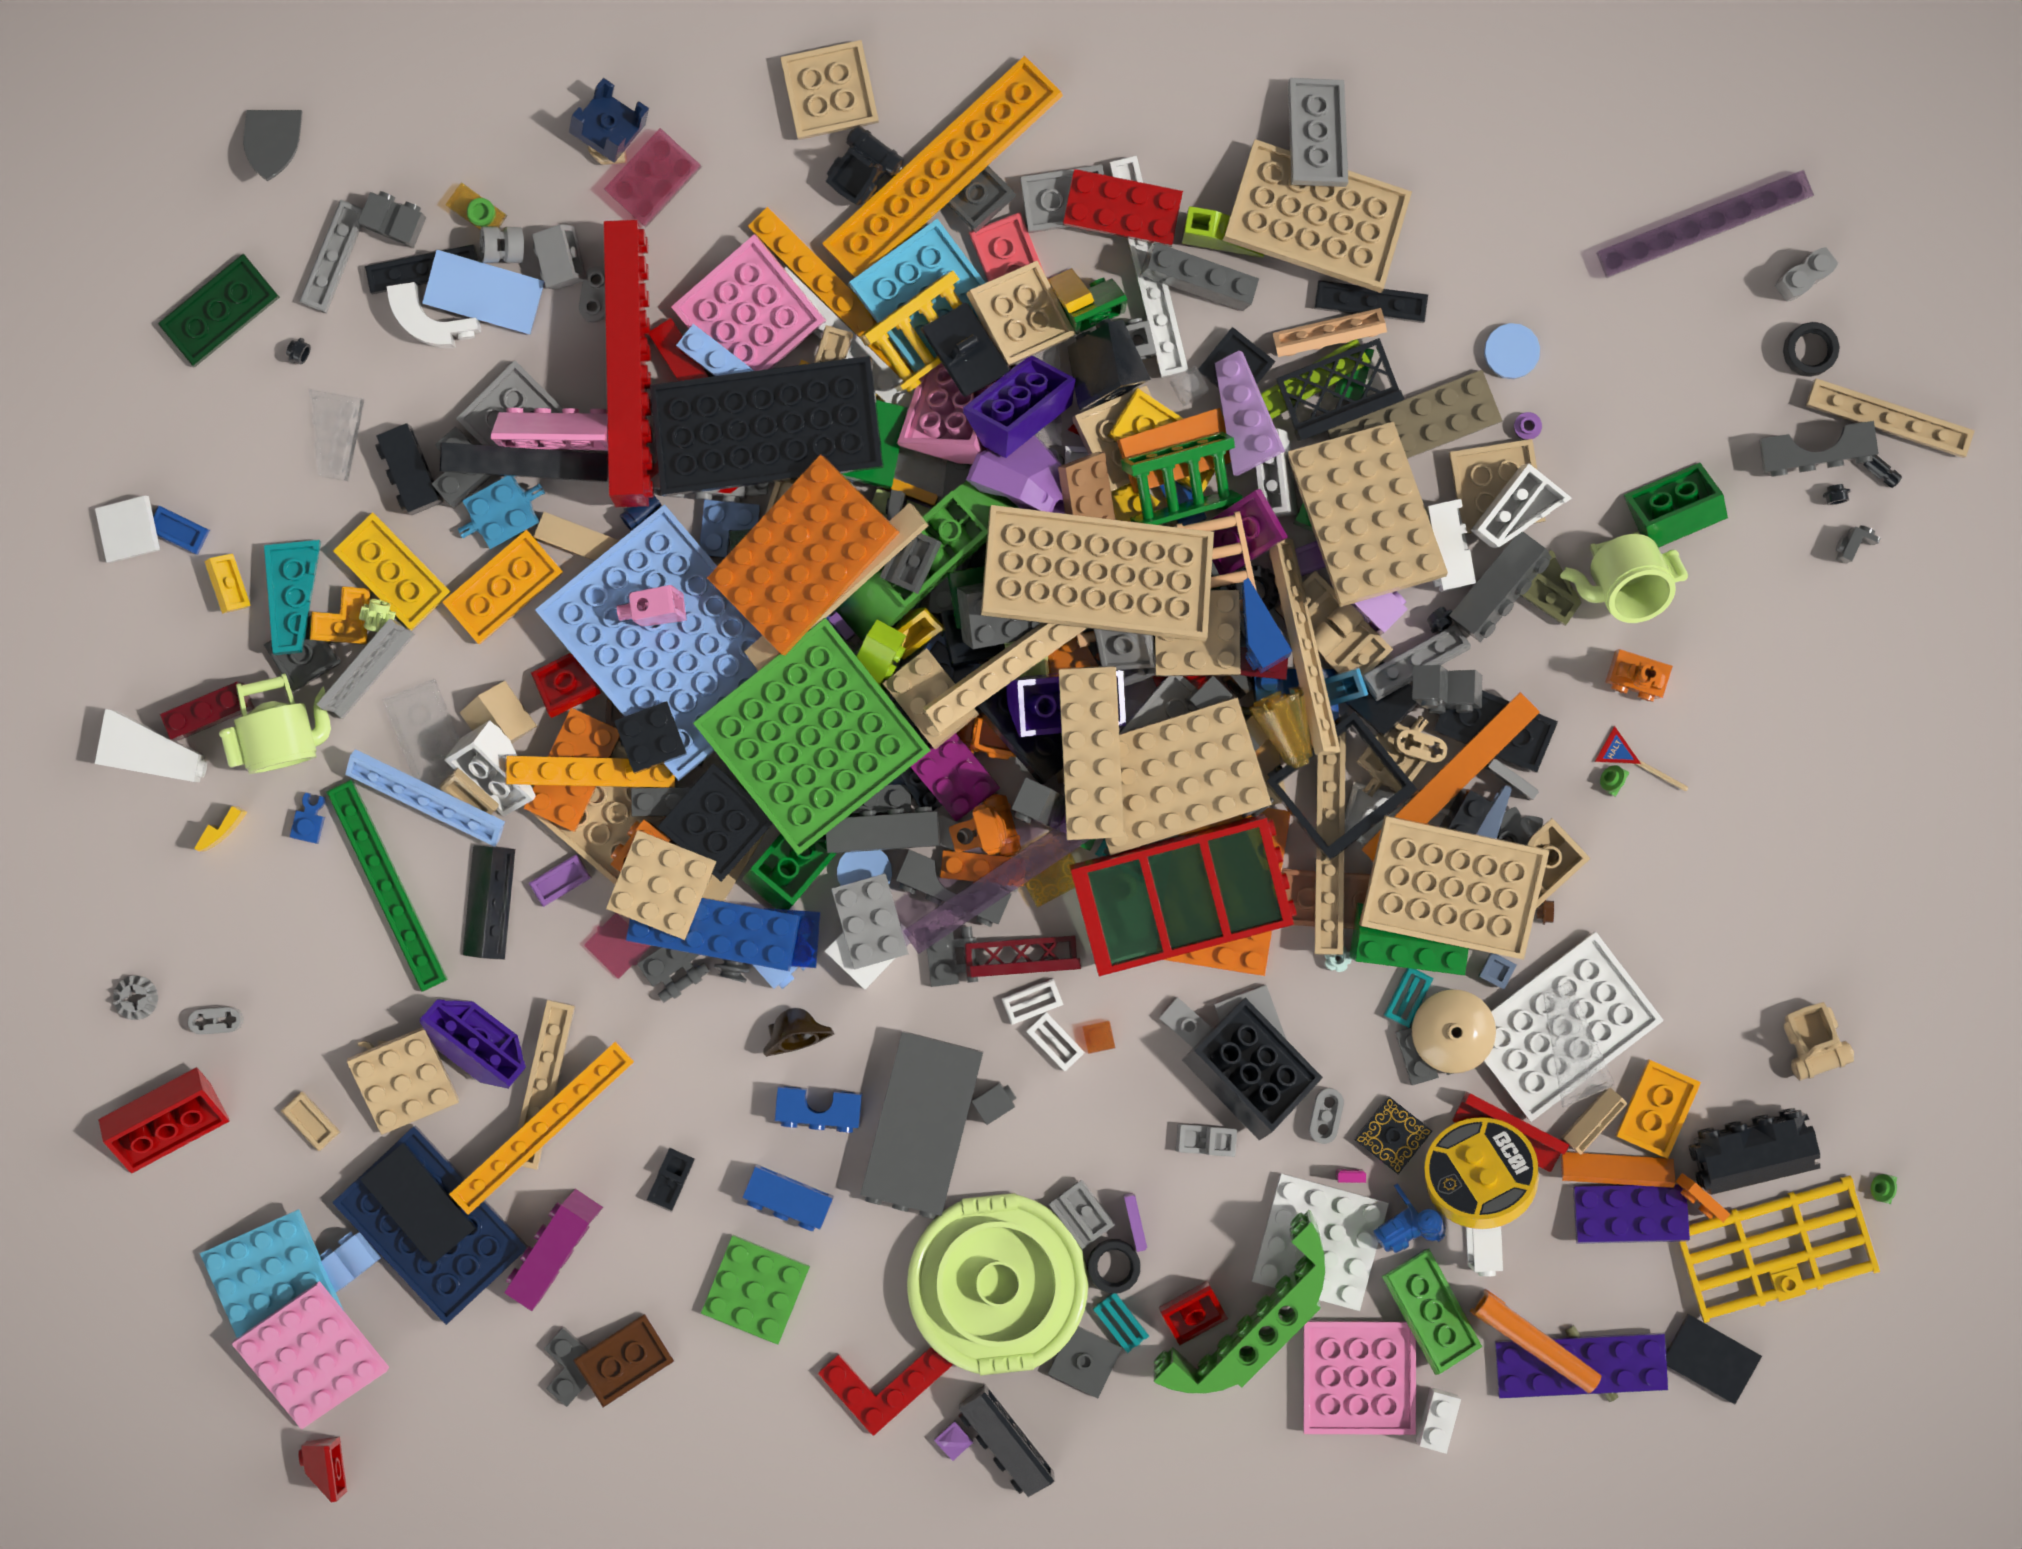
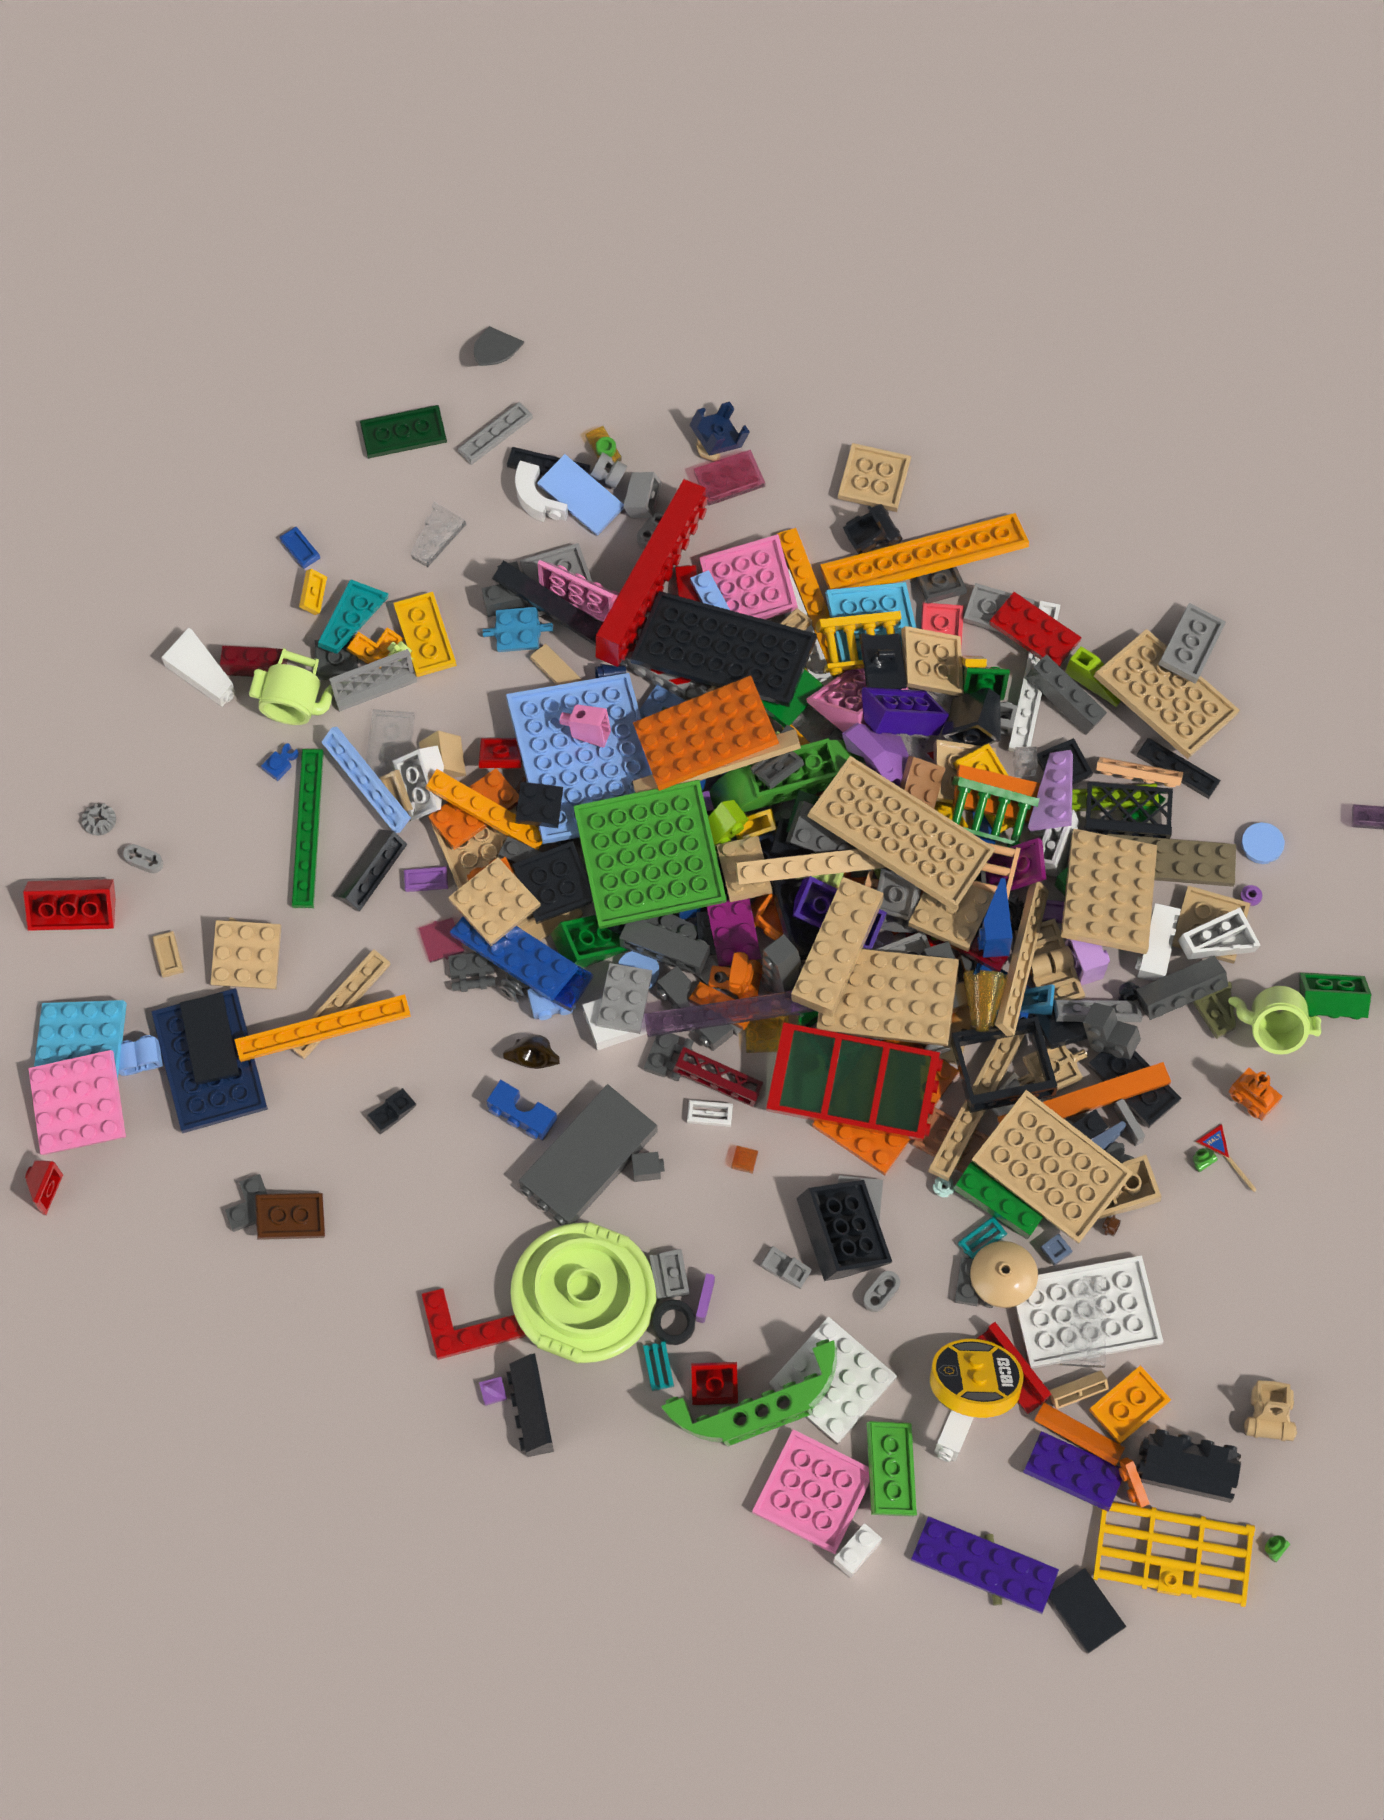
camera: 25 degrees right, 20 degrees down
(127, 529) = (267, 530): white tile -> none
(214, 835) = (212, 741): yellow slope -> none
(298, 351) = (440, 477): black plate -> none
(391, 219) = (545, 427): dark grey brick -> none
(408, 469) = (470, 577): black brick -> none
(475, 1041) = (307, 950): dark purple wedge -> none
(502, 587) = (492, 677): light orange plate -> none
(552, 1250) = (283, 1114): magenta wedge -> none
(755, 1289) = (409, 1215): bright green plate -> none
(787, 1198) = (466, 1161): blue brick -> none
(1039, 1024) = (717, 1165): white tile -> none
(1085, 1362) = (618, 1381): dark grey plate -> none
(1185, 1022) = (810, 1174): light grey plate -> none
(1350, 1176) = (878, 1342): dark pink tile -> none
(1393, 1135) = (924, 1330): black plate -> none
(1409, 1225) = (905, 1394): blue piece -> none
(1418, 752) = (1076, 1063): tan beam -> none
(1506, 1321) = (937, 1487): orange axle -> none

